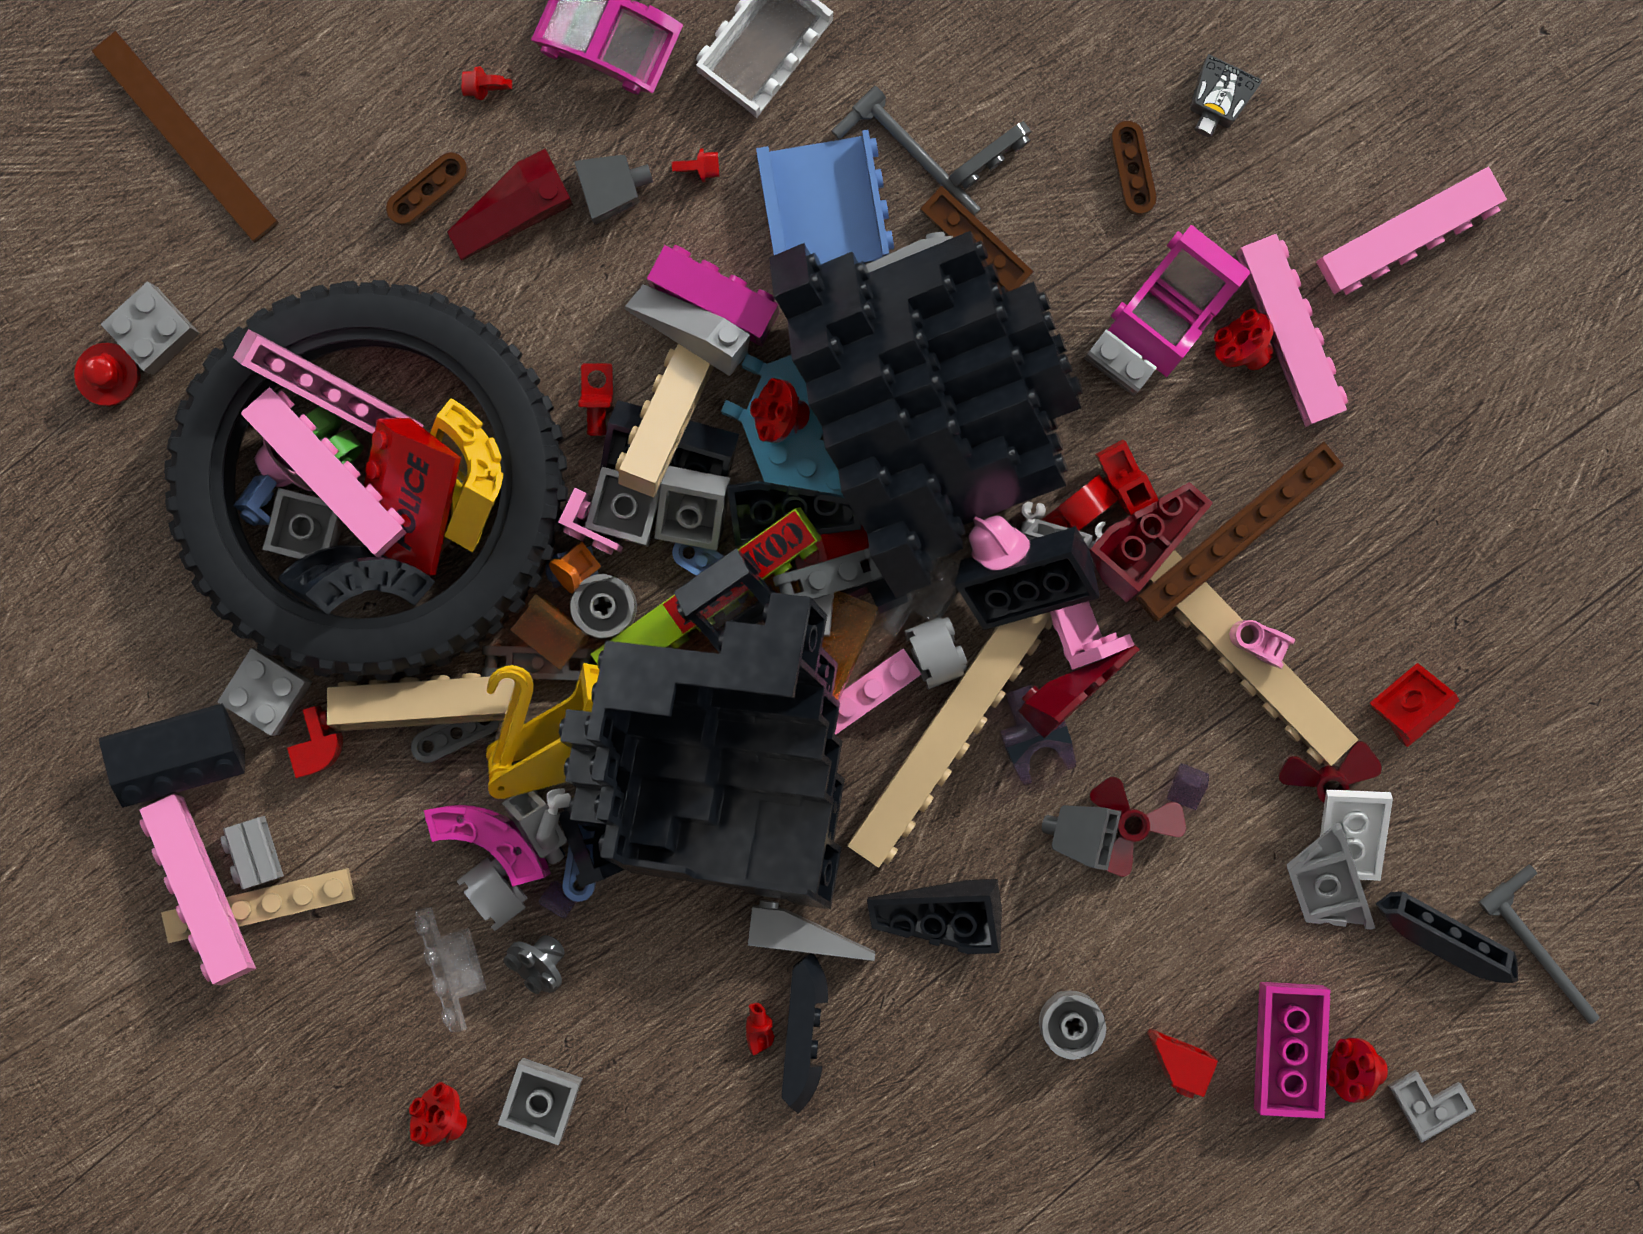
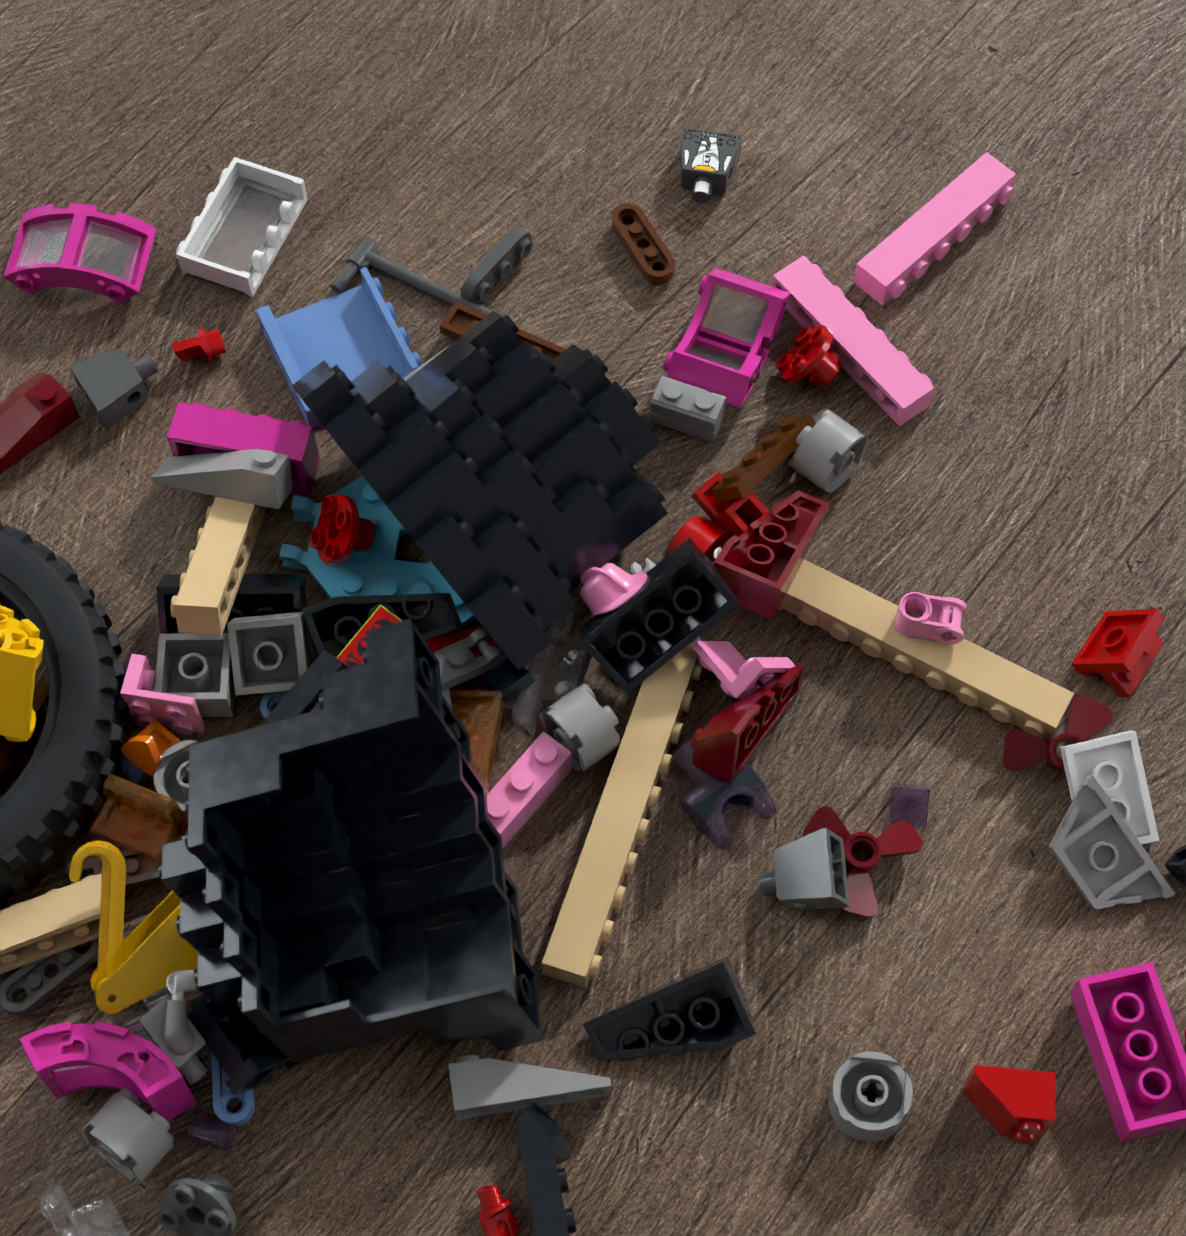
camera: 15 degrees left, 25 degrees down
(596, 398) = (142, 584): red bracket -> none
(1171, 440) = (761, 461): none -> reddish brown plate
(1229, 447) = (828, 451): none -> light grey brick
(1239, 532) = (865, 530): reddish brown tile -> none

